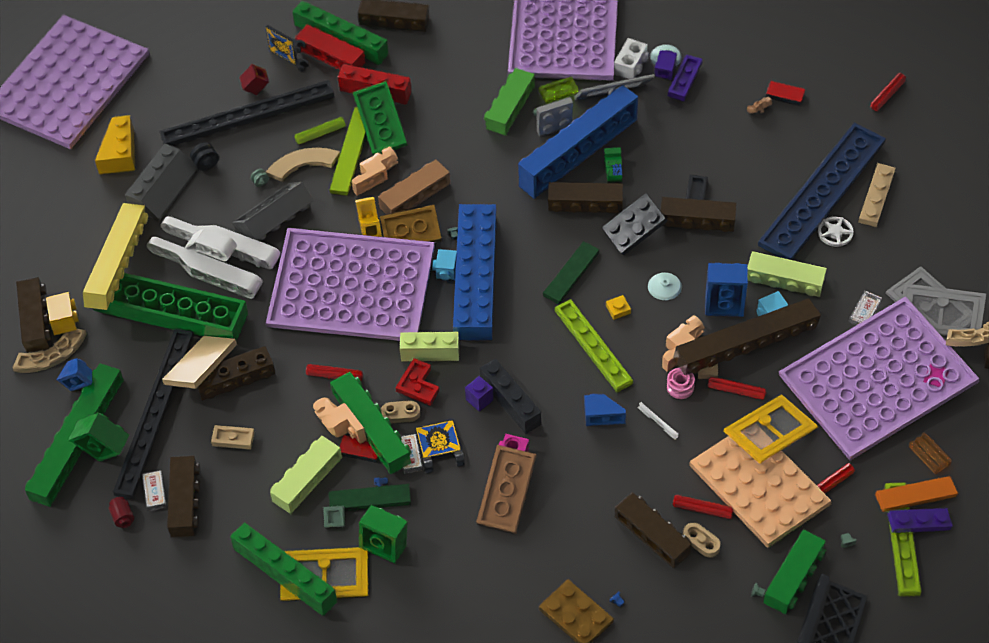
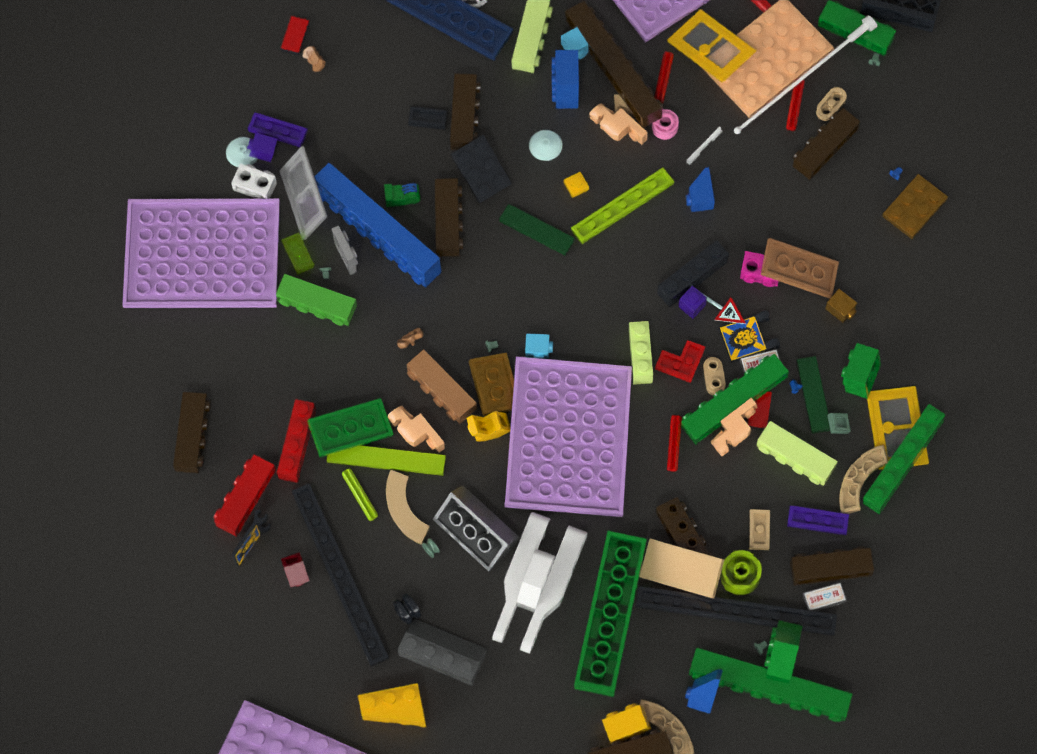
camera: 95 degrees left, 15 degrees up
(114, 256) = (561, 671): light yellow brick -> none
(121, 512) = (855, 622): dark red brick -> none
(188, 414) = (750, 568): none -> lime brick
(233, 489) = (818, 520): none -> dark purple plate
(275, 529) = (857, 475): none -> tan tile
(374, 46) = (218, 486): green brick -> none
(462, 528) = (841, 306): none -> pearl gold brick
(466, 168) = (410, 338): none -> medium nougat piece
(467, 428) = (728, 313): none -> piece
(475, 272) = (553, 315): blue brick -> none
(791, 572) = (868, 24): none -> white piece

